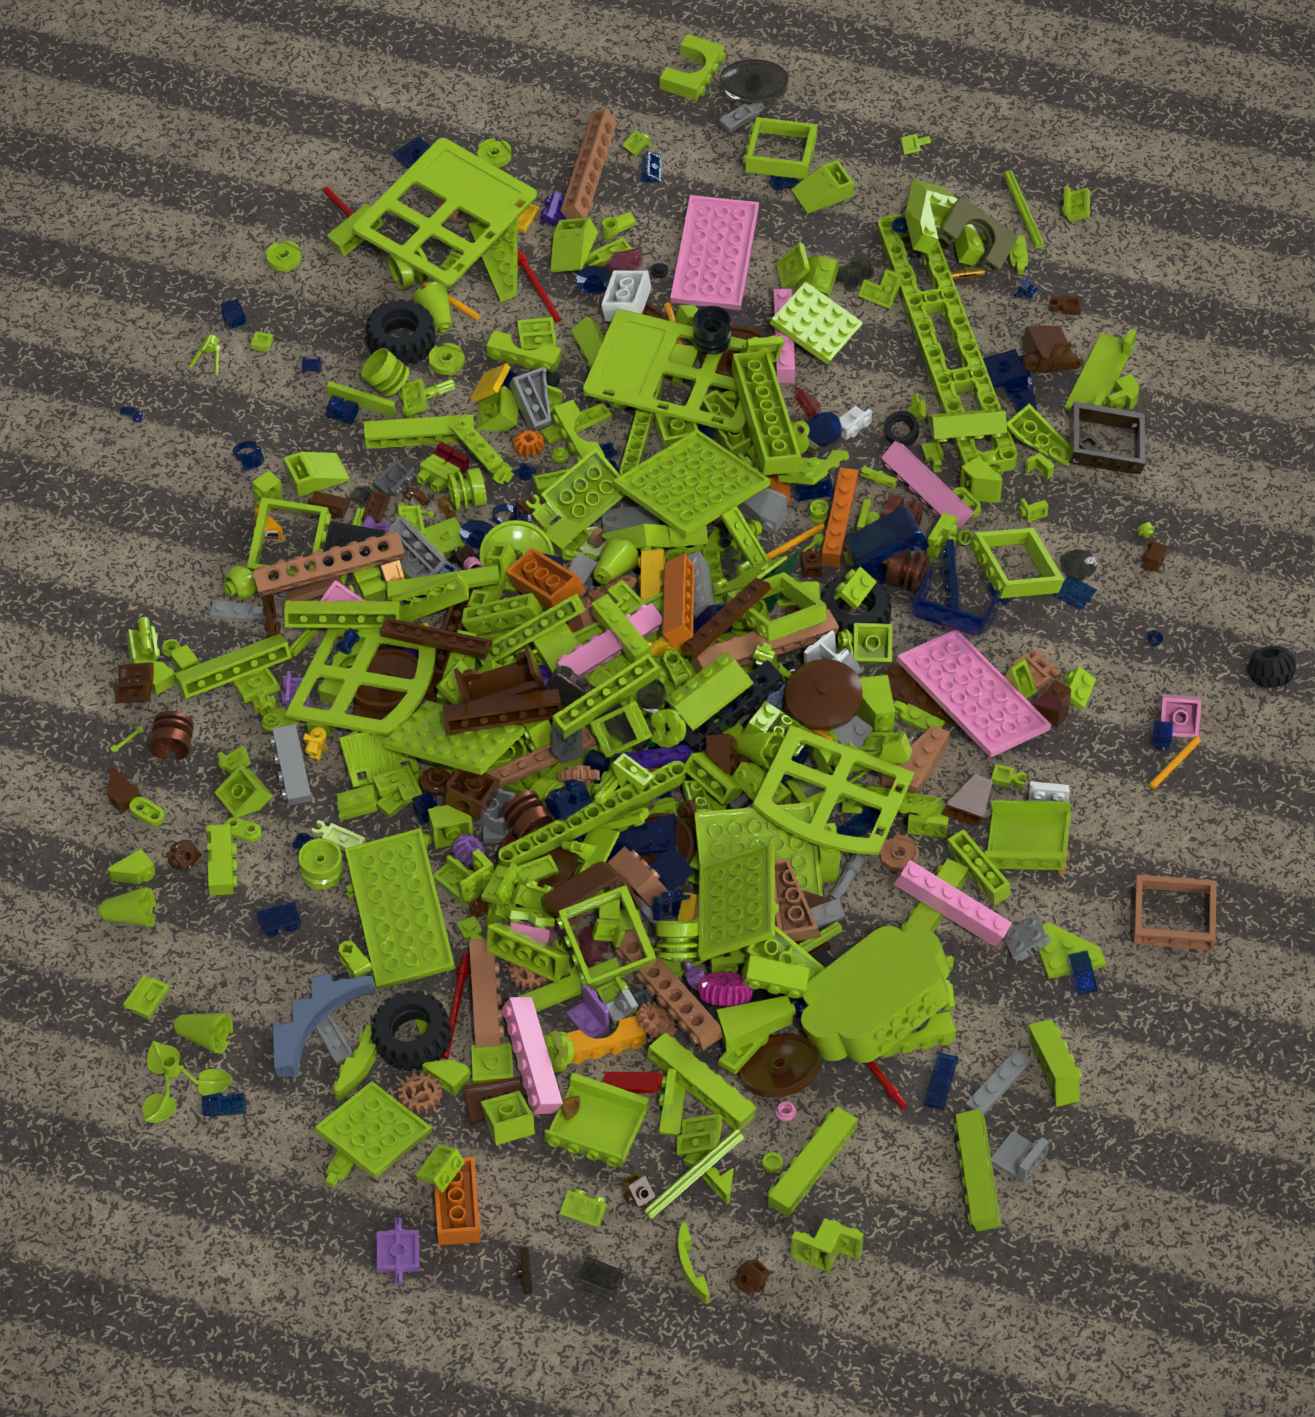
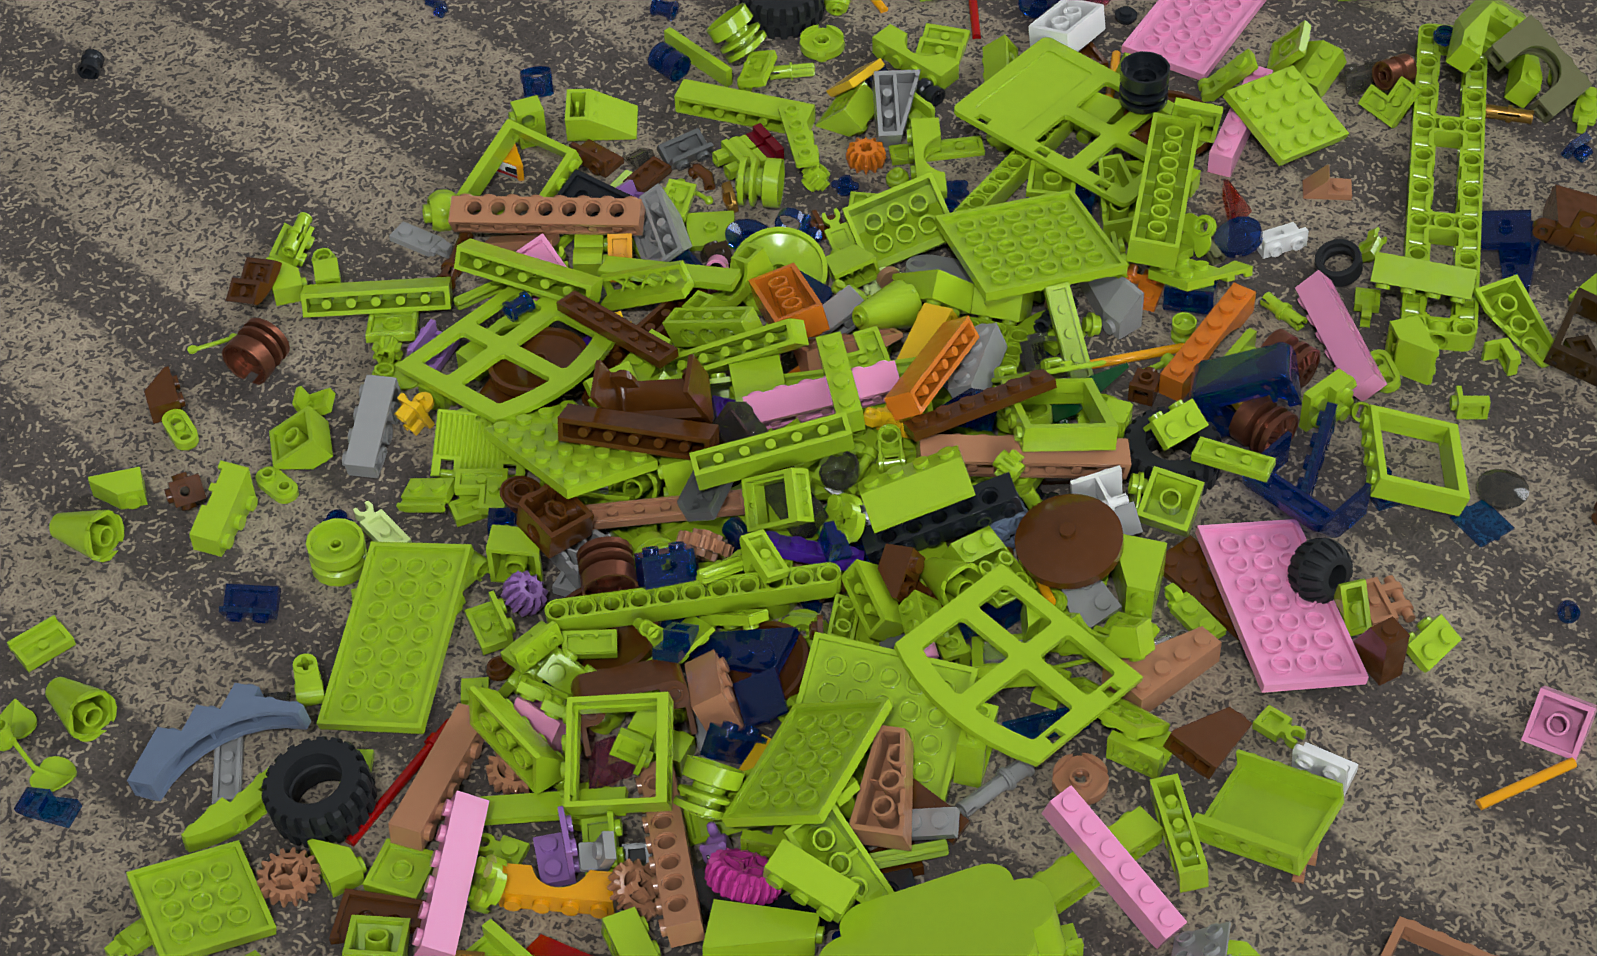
camera: 25 degrees right, 5 degrees down
(476, 883) = (501, 633): lime bracket -> none
(553, 1024) = (509, 848): none -> lime plate
(599, 849) = (676, 642): none -> slope
(673, 747) = (834, 543): none -> clear blue bracket
(760, 302) = (1227, 76): none -> lime plate
(864, 370) = (1323, 187): none -> nougat slope
(877, 264) = (1388, 71): none -> copper wheel
(903, 601) = (1233, 459): none -> lime tile
(990, 661) = (1319, 569): none -> black wheel
(1162, 734) = (1522, 739): clear blue bracket -> none

